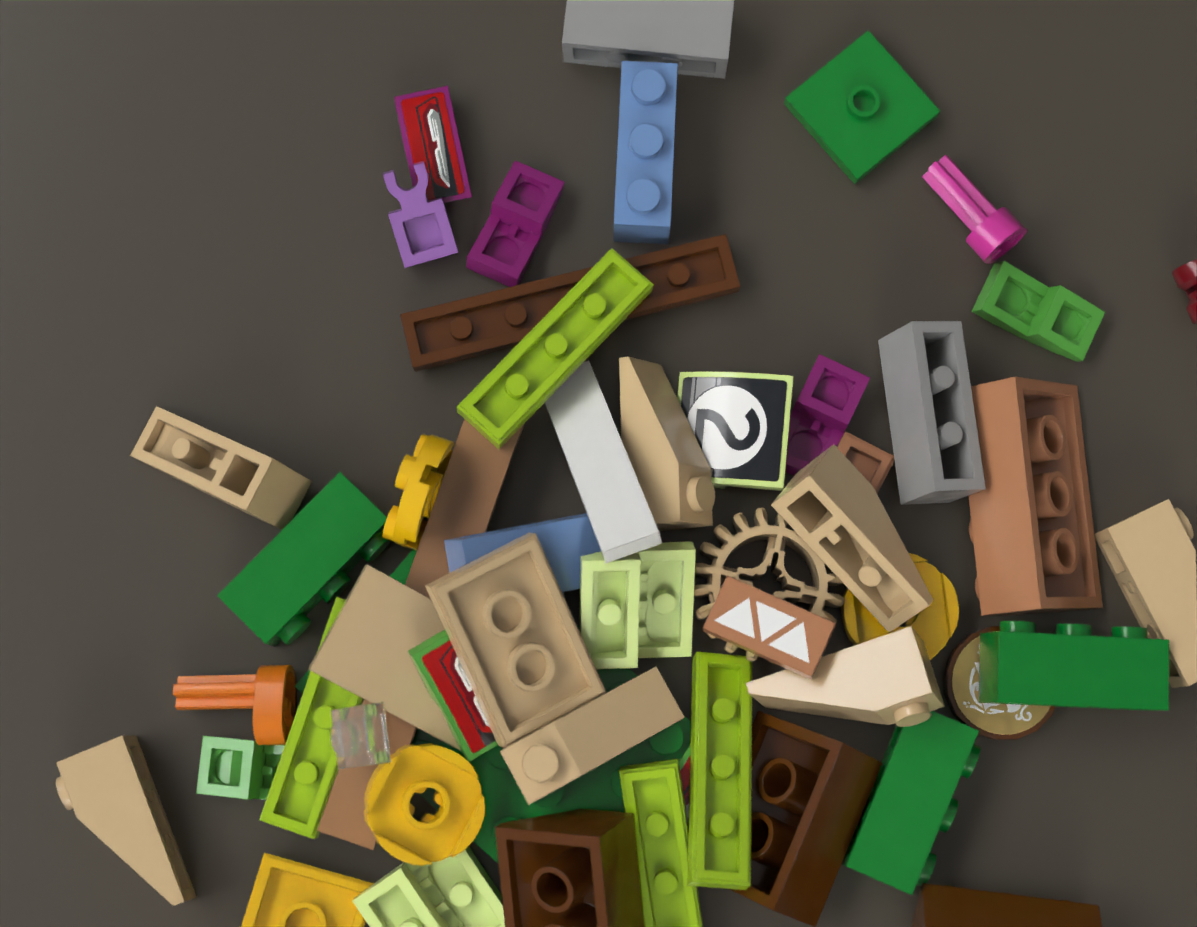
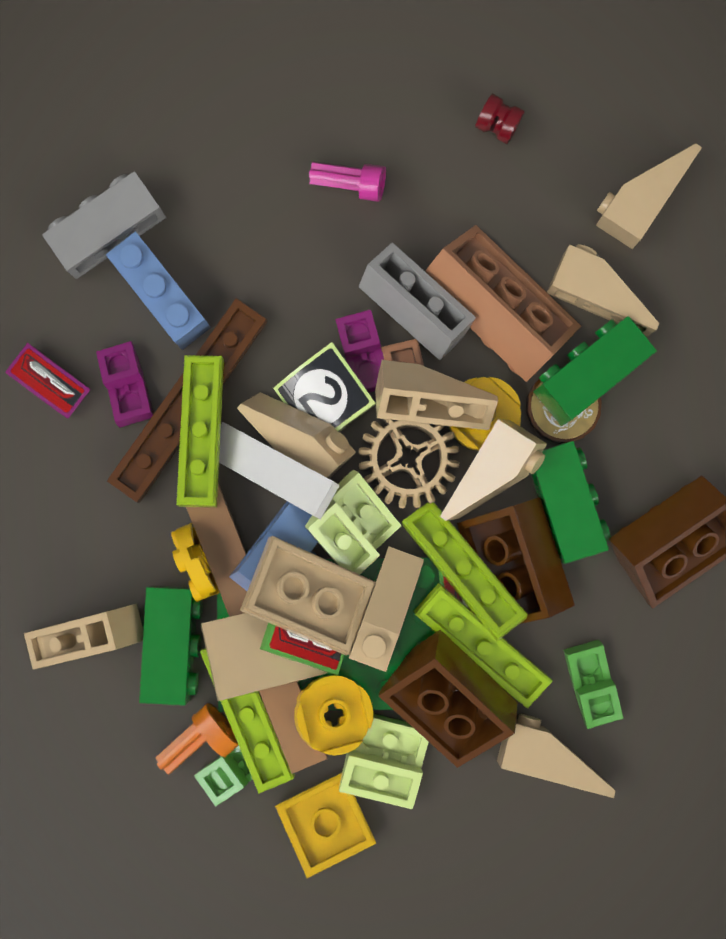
camera: 35 degrees left, 5 degrees up
(121, 806) = (185, 846): tan slope -> none
(360, 735) = (272, 710): clear plate -> none
(420, 224) = (75, 425): medium lavender plate -> none
(769, 627) = (428, 479): nougat tile -> none
(861, 107) = (248, 173): green plate -> none
(1038, 313) = (425, 204): bright green slope -> none

